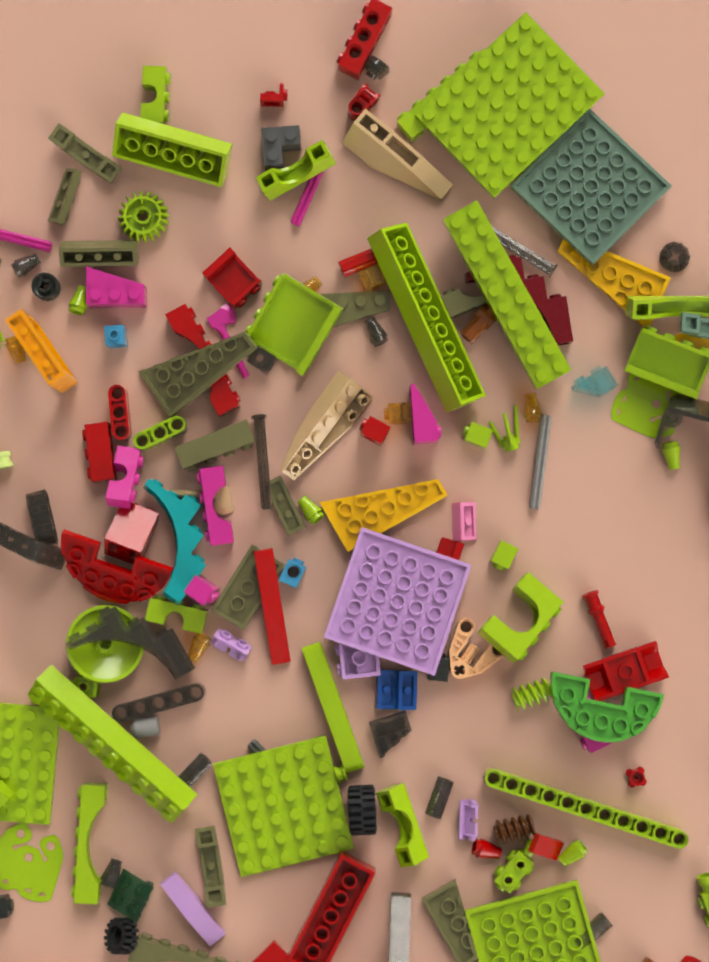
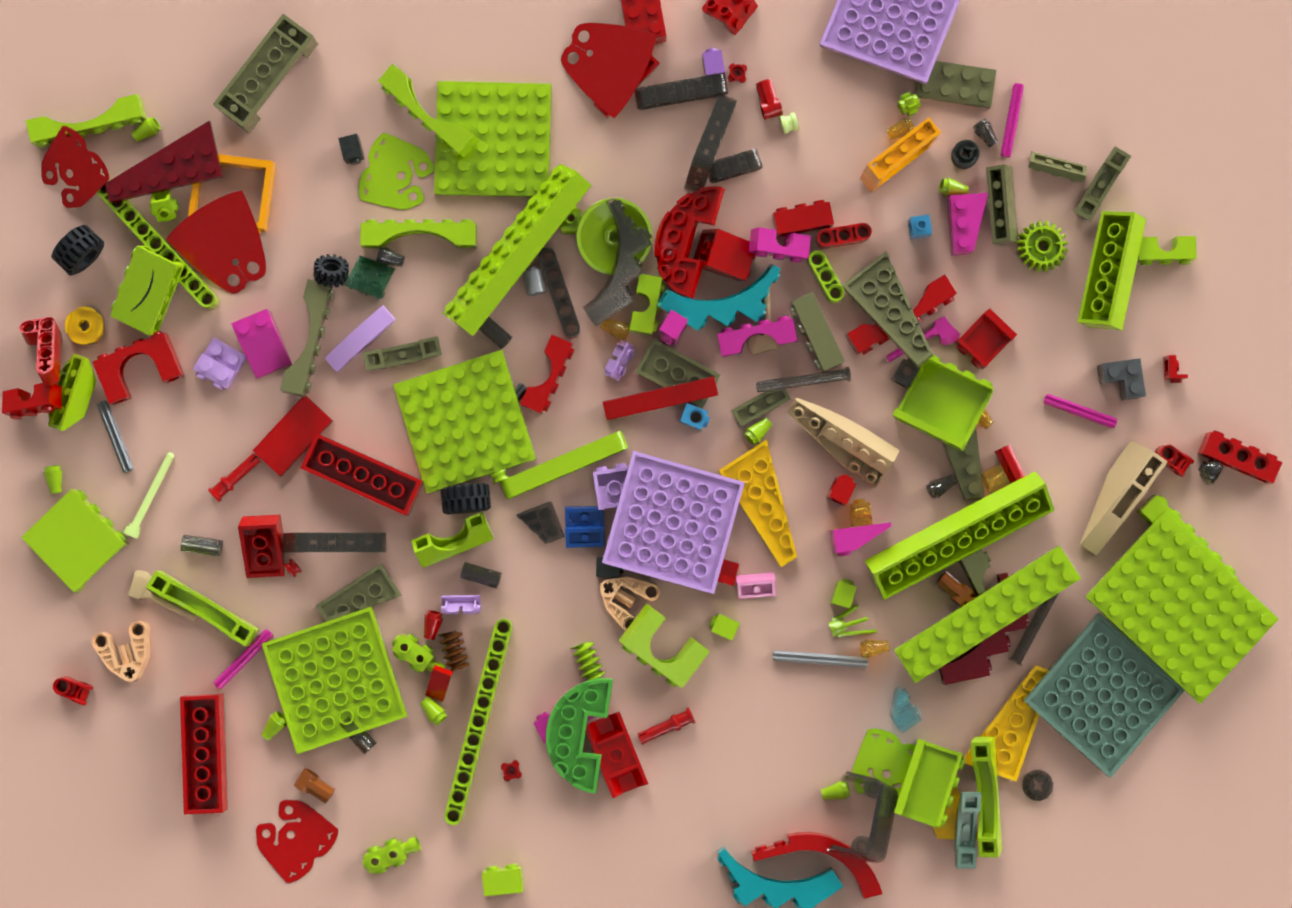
camera: 85 degrees right, 0 degrees up
(263, 729) = (538, 397): none -> red arch
(278, 181) = (1109, 413): lime arch -> none

